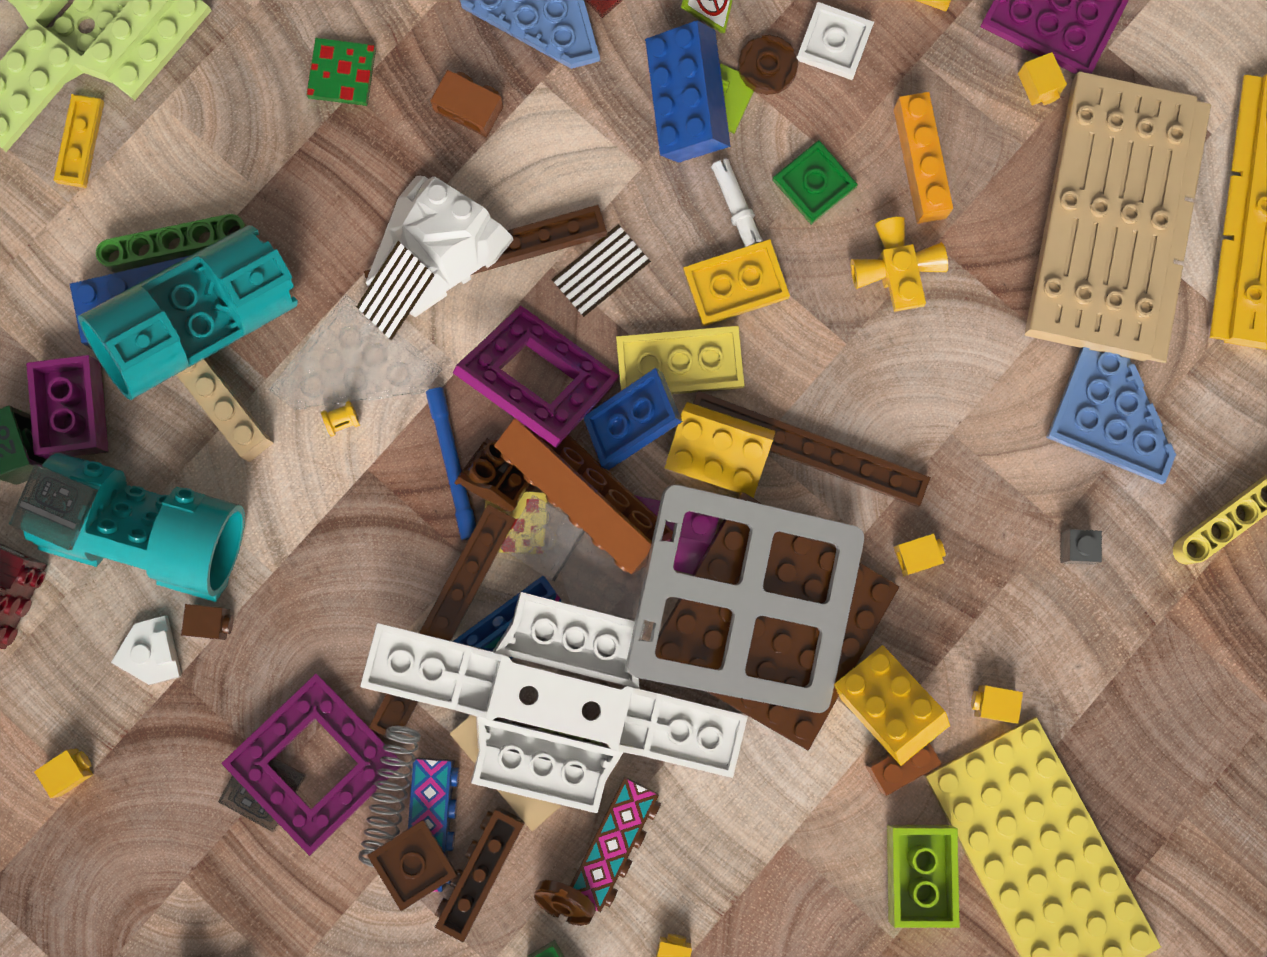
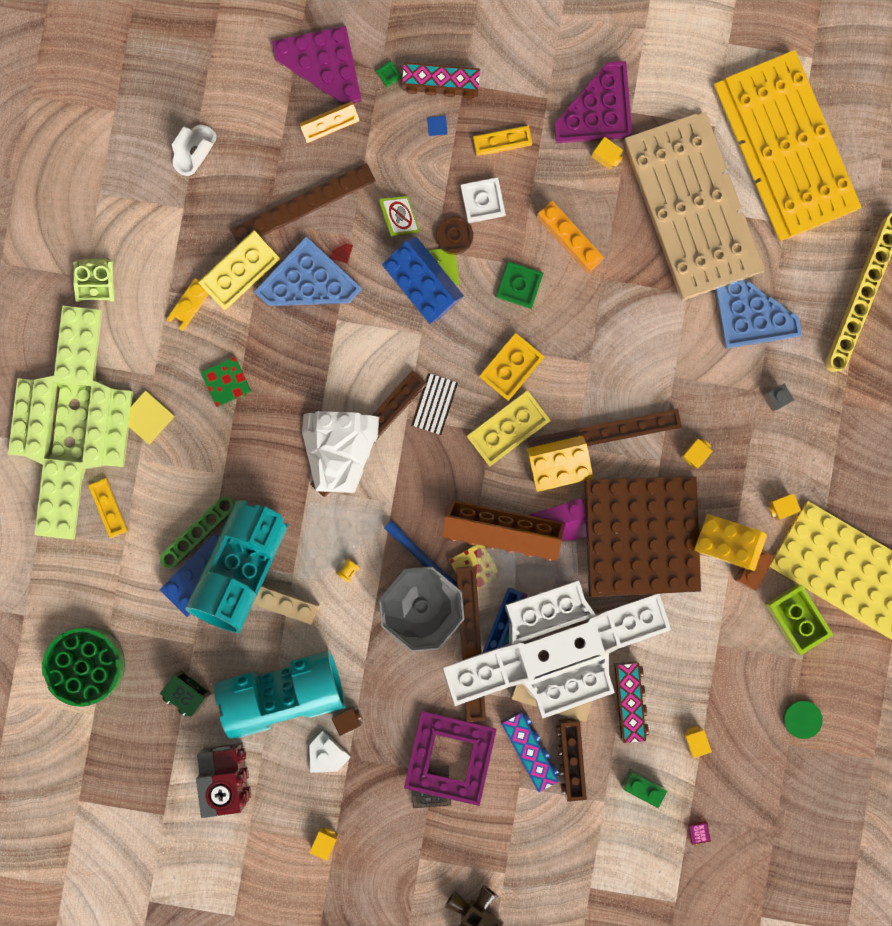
camera: 35 degrees left, 5 degrees up
(53, 507) = (237, 714): clear smoke tile -> none
(67, 406) = (200, 655): magenta brick -> none
(210, 56) = (148, 417): none -> light yellow tile
(395, 290) = (336, 486): sticker -> none
(402, 527) = (421, 609): none -> dark grey rock
(403, 739) = (494, 716): light grey piece -> none
(412, 865) = (536, 777): reddish brown plate -> none
(467, 102) = (306, 357): dark orange brick -> none
(493, 477) = (447, 552): reddish brown slope -> none
(550, 421) = (415, 504): magenta plate -> none
(563, 899) = (623, 746): reddish brown tile -> none
(632, 419) = (504, 476): blue plate -> none
(741, 214) = (492, 328): white pin -> none
(746, 600) = (624, 536): light grey window -> none
(899, 265) = (593, 305): yellow brick -> none

